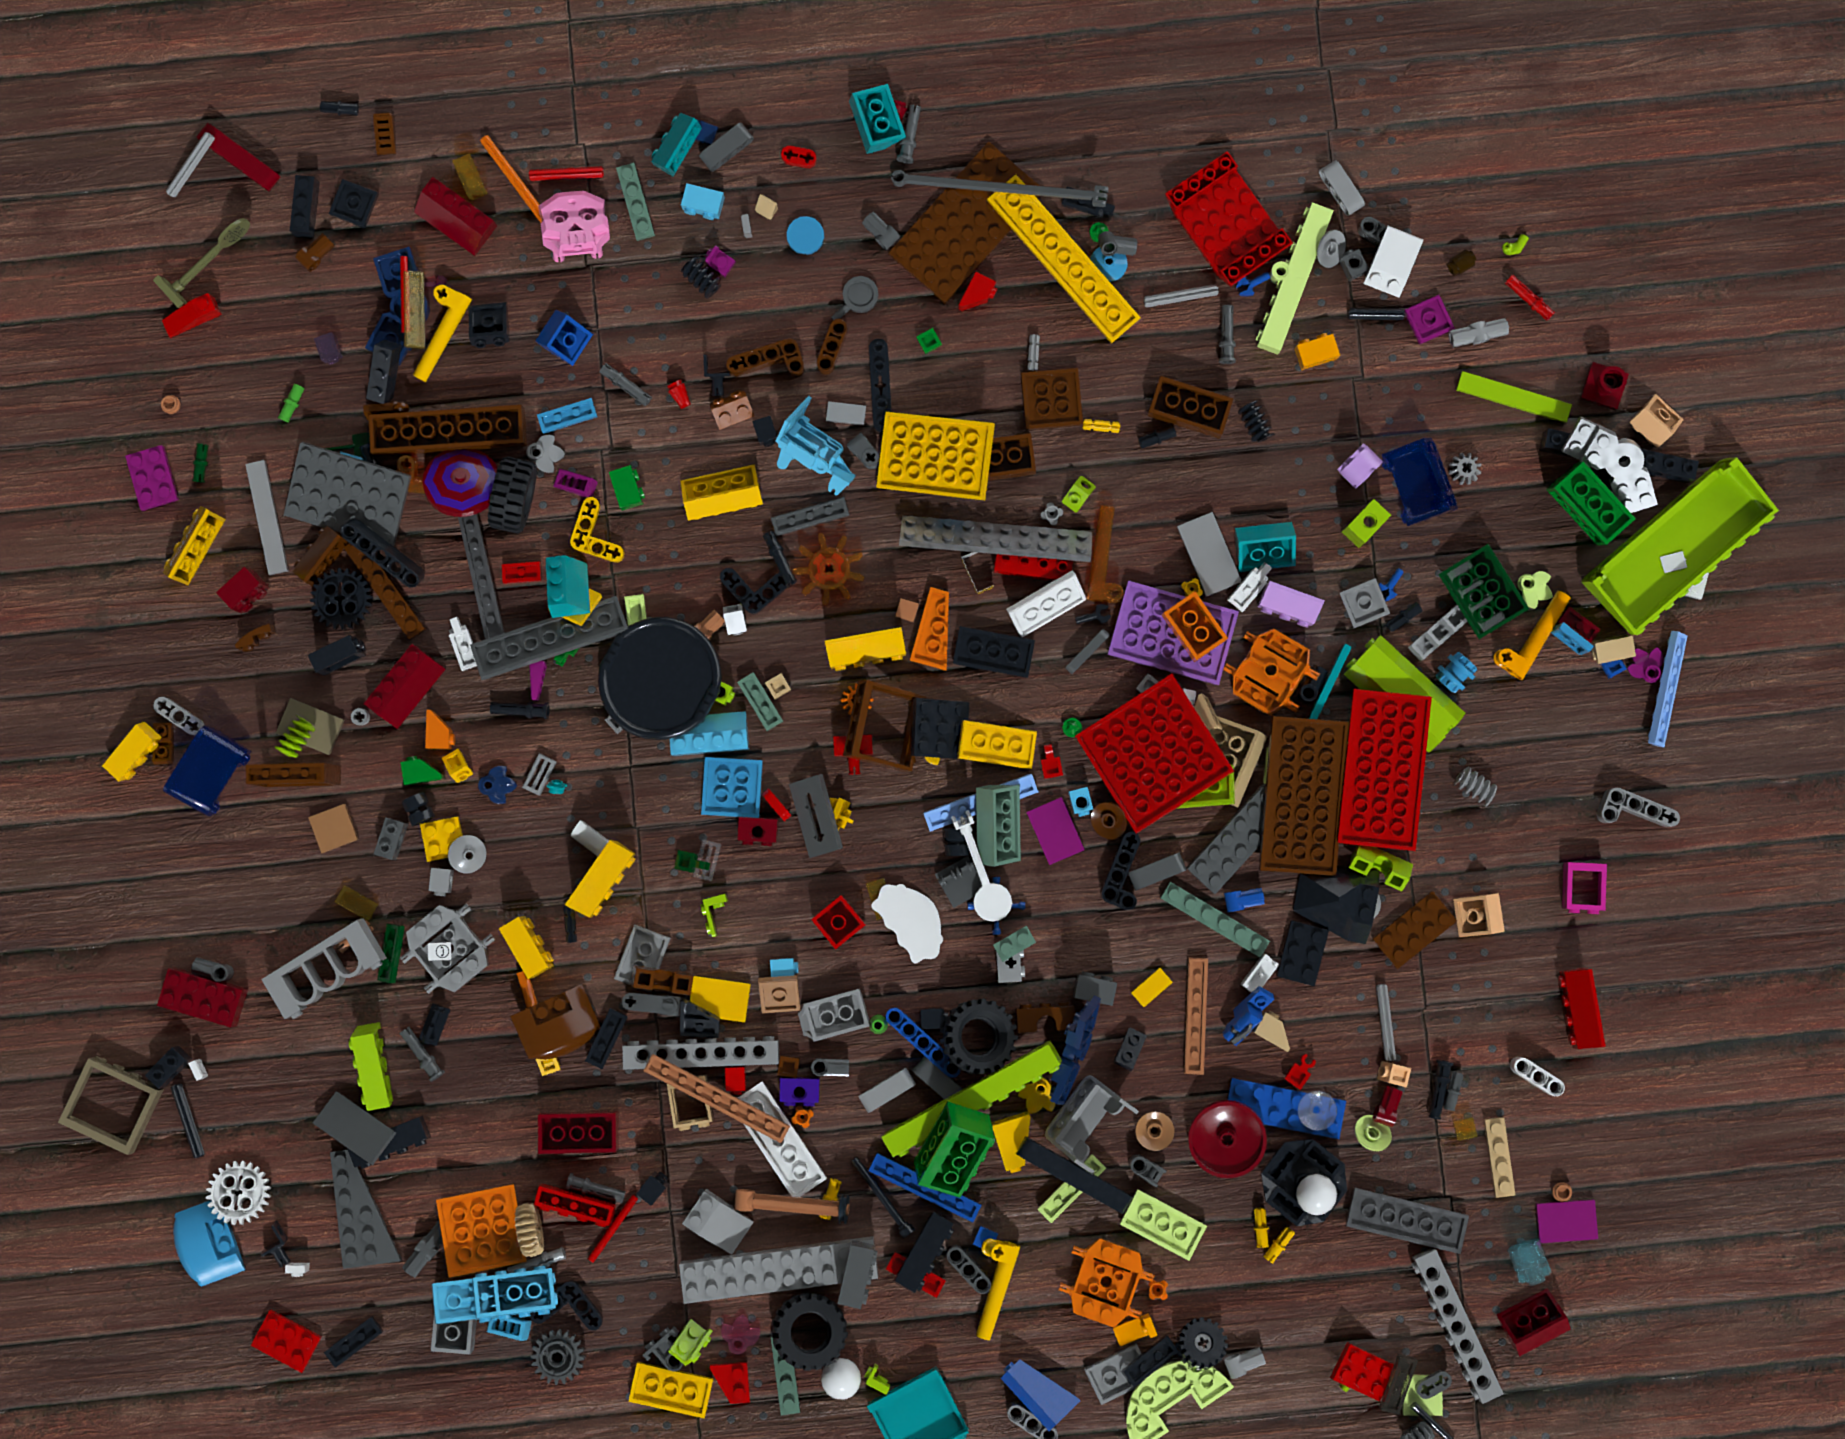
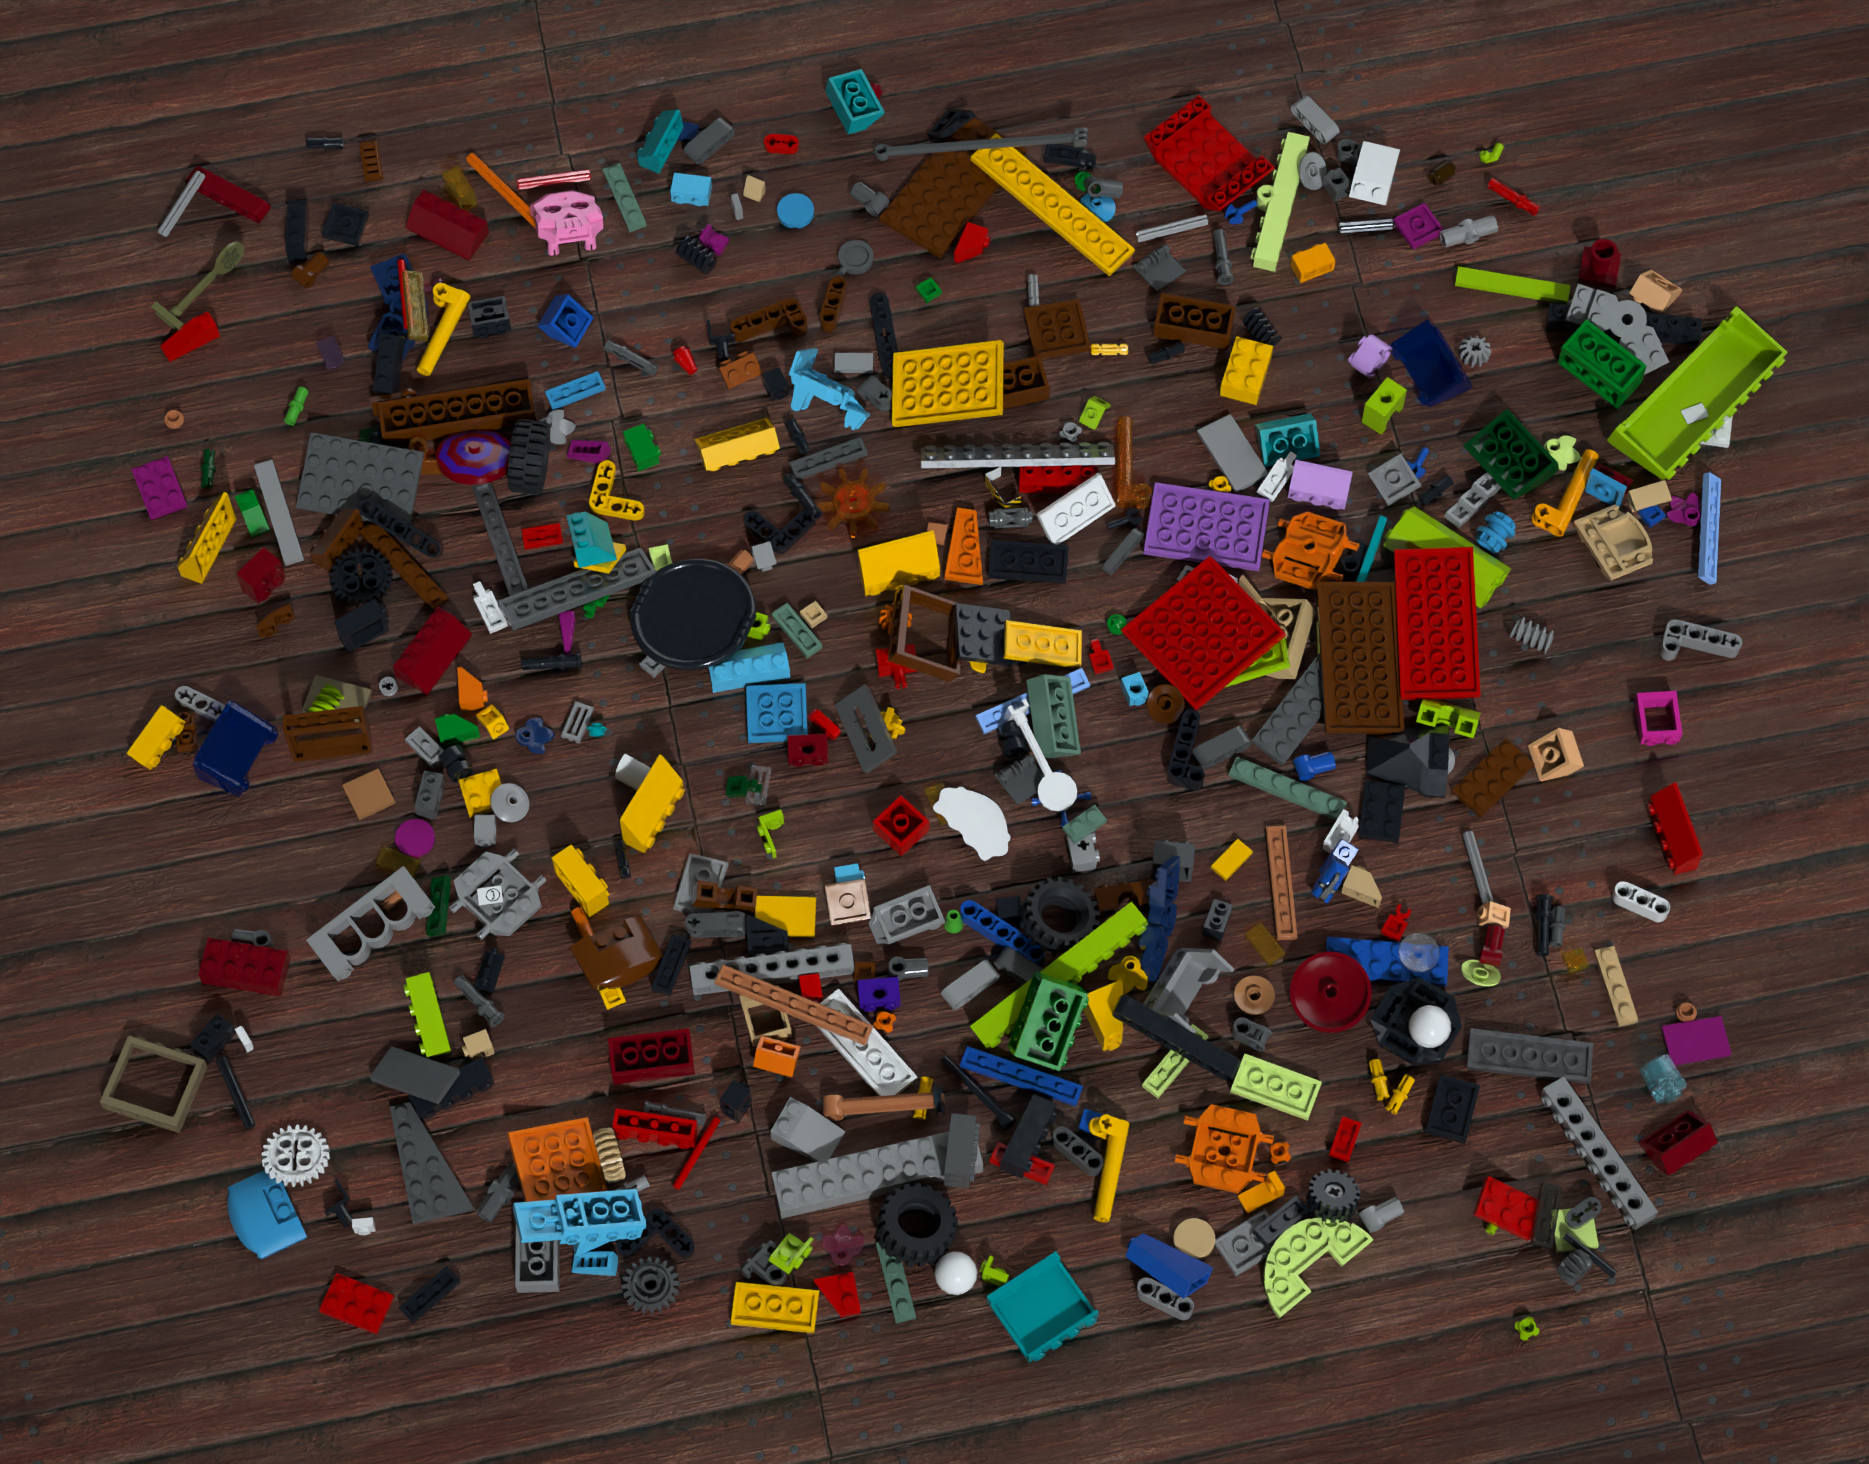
camera: 10 degrees left, 20 degrees down
(240, 518) = (252, 513): none -> green slope
(374, 879) = (415, 838): none -> magenta tile
(390, 786) = (424, 746): none -> light grey plate
(417, 1101) = (477, 1045): none -> tan brick
(696, 1145) = (776, 1056): none -> orange brick
(782, 490) = (797, 436): none -> black axle
(908, 143) = (887, 121): dark grey pin -> none
(971, 153) = (950, 122): none -> black wing
(973, 602) = (1000, 518): none -> dark grey piece
(1055, 831) = (1112, 722): magenta tile -> none
(1066, 1366) = (1194, 1238): none -> tan tile
(1162, 340) = (1159, 268): none -> dark grey hinge
(1172, 1077) = (1265, 944): none -> clear yellow tile
(1194, 626) = (1227, 512): orange brick -> none
(1221, 1283) = (1345, 1139): none -> red plate
(1234, 466) = (1246, 370): none -> yellow brick
(1326, 1265) = (1452, 1109): none -> black plate
(1573, 695) = (1615, 541): none -> tan slope

